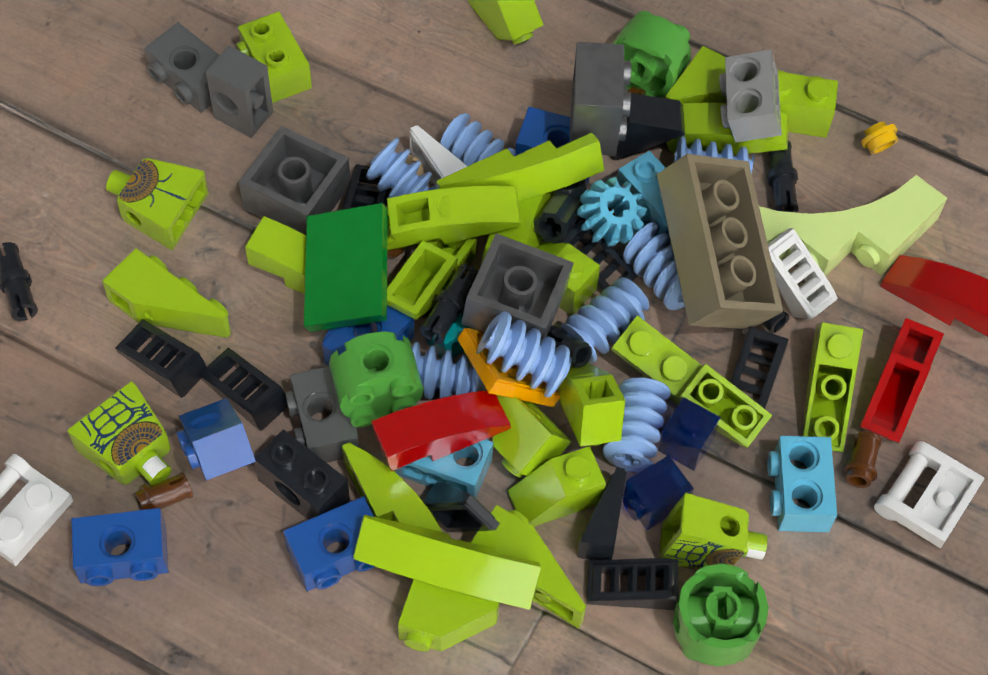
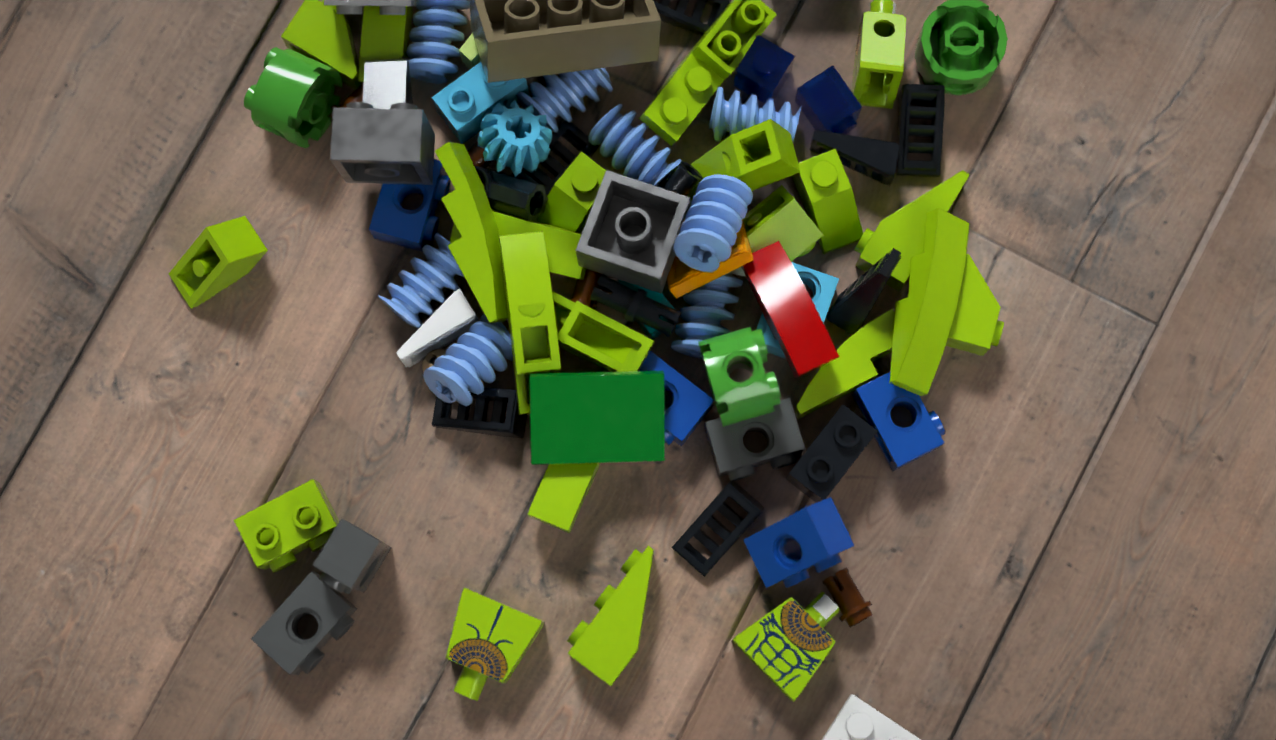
camera: 85 degrees left, 20 degrees up
(99, 534) = (902, 660): blue brick -> none
(180, 374) = (663, 650): black slope -> none
(294, 180) = (472, 484): flat silver brick -> none

